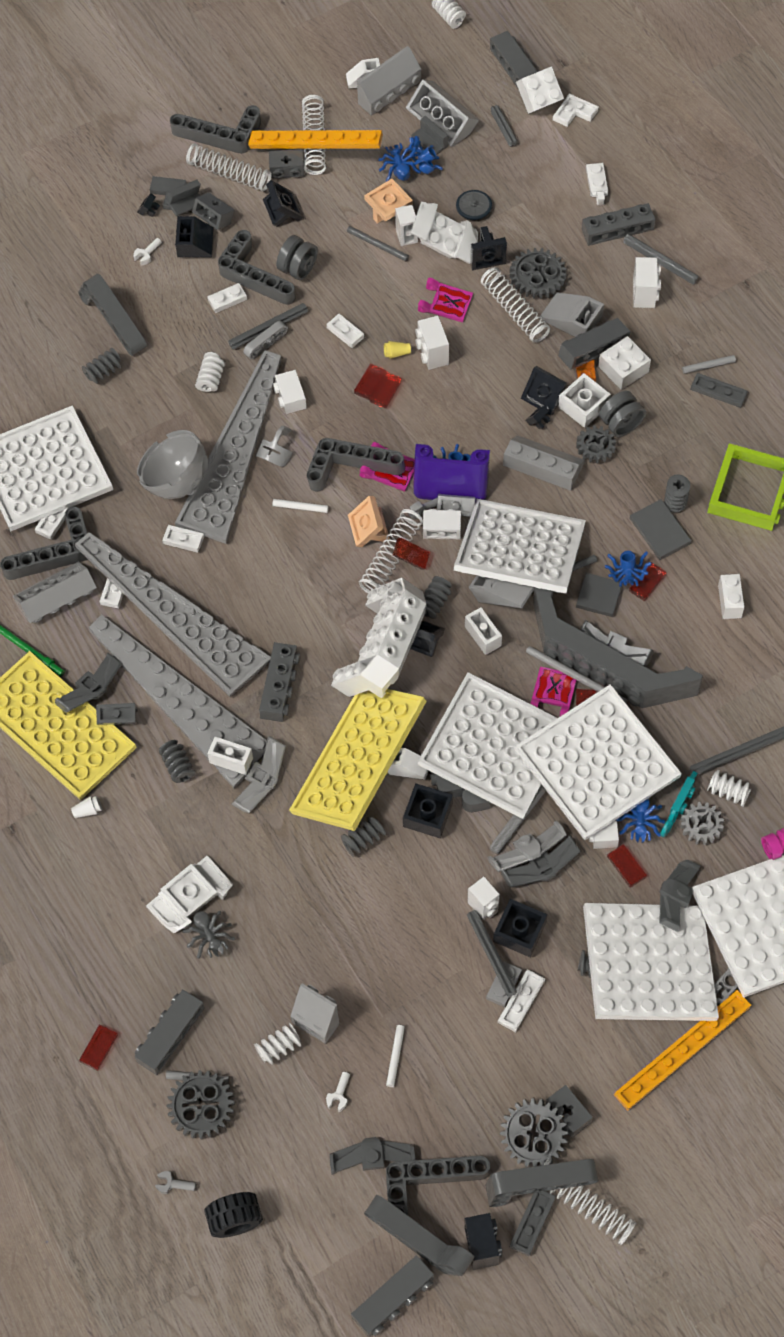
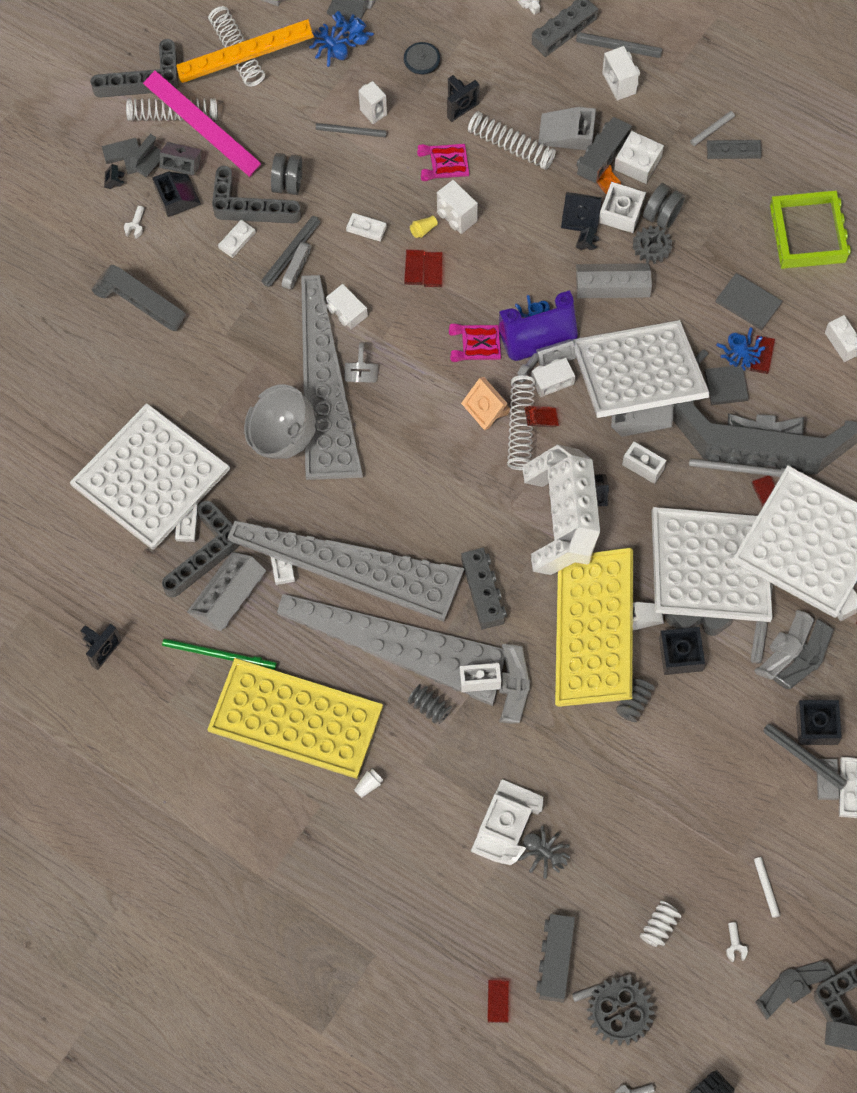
camera: 25 degrees left, 5 degrees up
(90, 685) = (310, 666): dark grey plate -> none
(102, 365) = (154, 353): dark grey piece -> none
(116, 713) = (350, 683): dark grey panel -> none
(183, 538) = (320, 489): white plate -> none
(210, 372) = (261, 318): white piece -> none
(246, 188) = (202, 123): none -> dark pink tile
(281, 204) = (241, 127): black bracket -> none
(286, 163) = (225, 84): dark grey brick -> none
(300, 505) = (412, 412): white bar -> none
(315, 1013) = (682, 882): light grey slope -> none
(351, 457) = (438, 348): dark grey beam -> none
(385, 200) = (343, 85): light nougat bracket -> none
(435, 595) = (584, 442): dark grey piece -> none
(443, 233) = (413, 98): white piece -> none
(483, 898) = (775, 710): white brick -> none
(542, 275) = (515, 101): dark grey gear -> none
(554, 689) = (732, 489): flag -> none
(677, 493) = (751, 262): dark grey piece -> none

